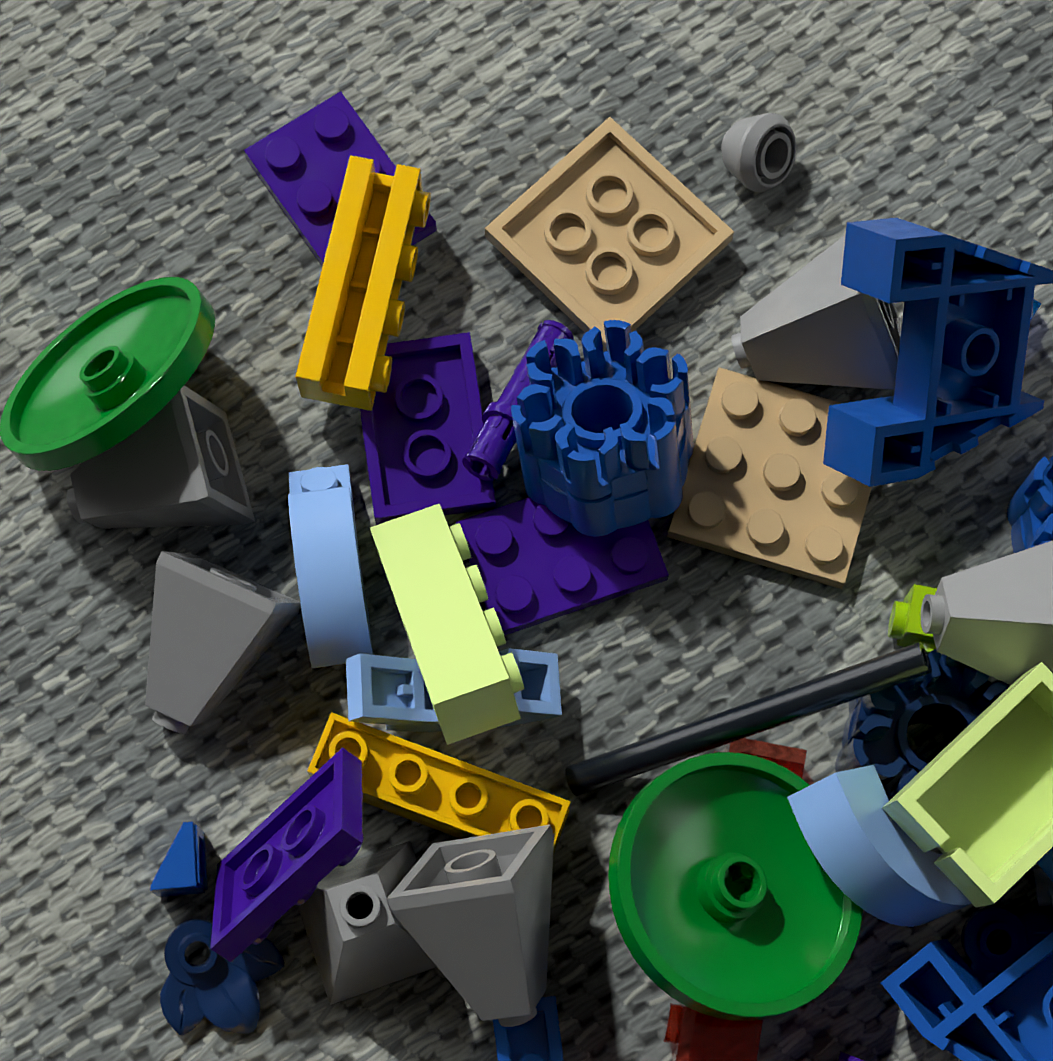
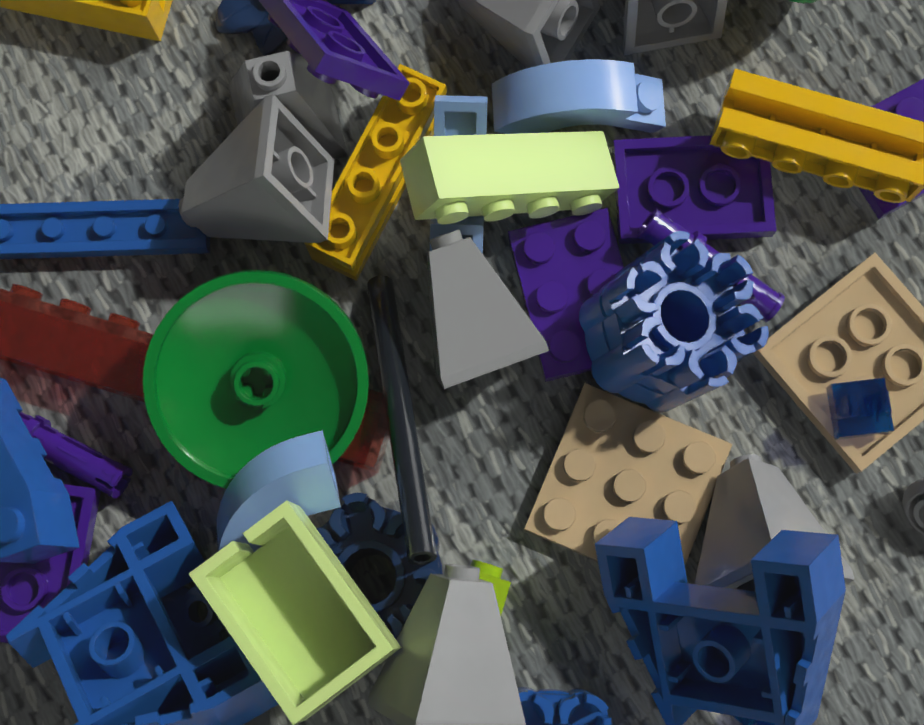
camera: 100 degrees right, 5 degrees up
(624, 651) = (473, 314): none -> light grey slope
(668, 233) = (860, 408): none -> clear blue tile

